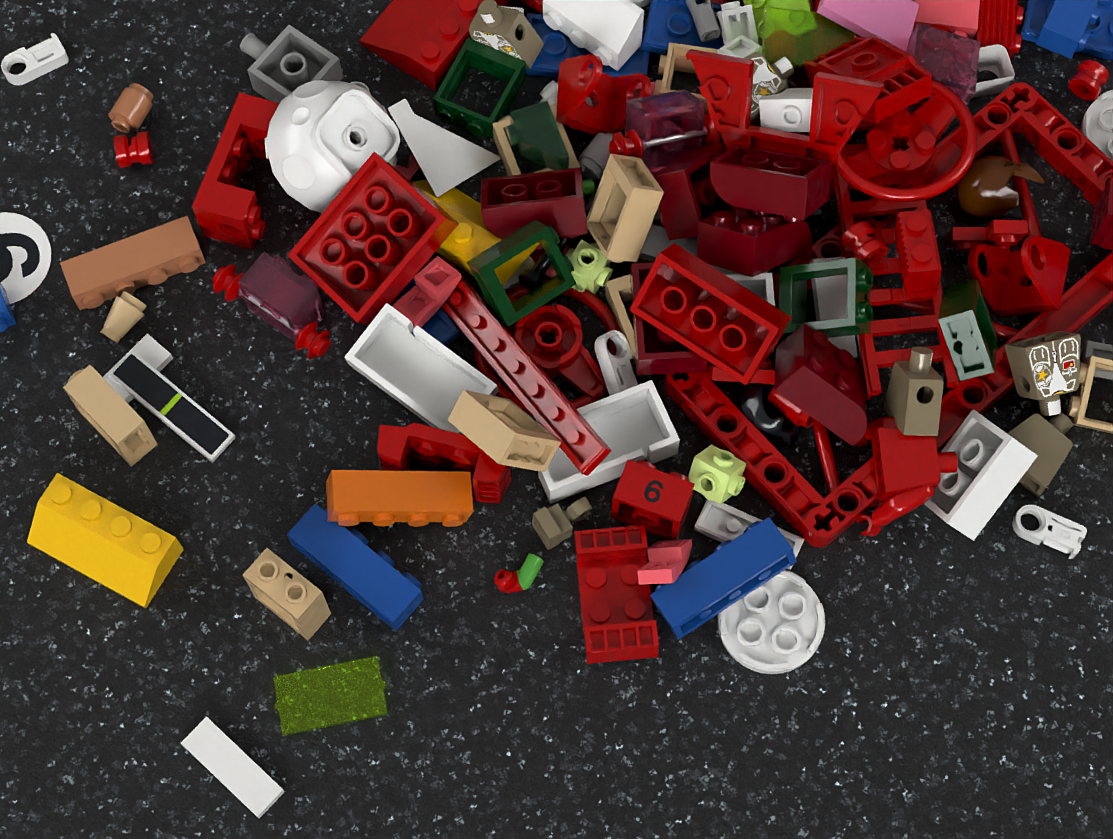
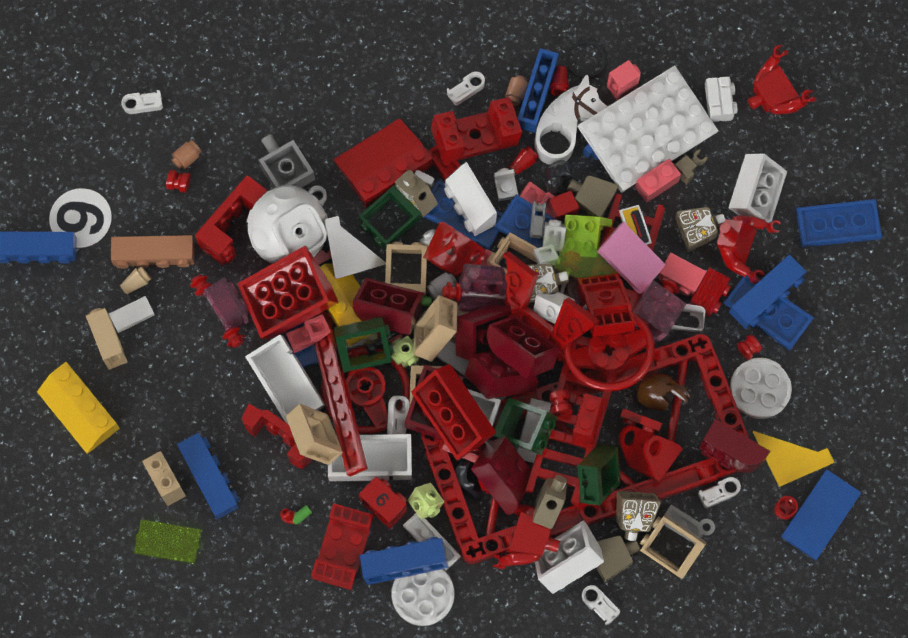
camera: 20 degrees right, 5 degrees up
(171, 405) = (142, 344): black tile -> none
(232, 767) = (100, 560): white tile -> none
(399, 497) = (245, 446): orange brick -> none
(538, 136) = (407, 264): clear green slope -> none
(554, 524) = (325, 493): dark tan piece -> none
(666, 561) = (377, 539): coral slope -> none

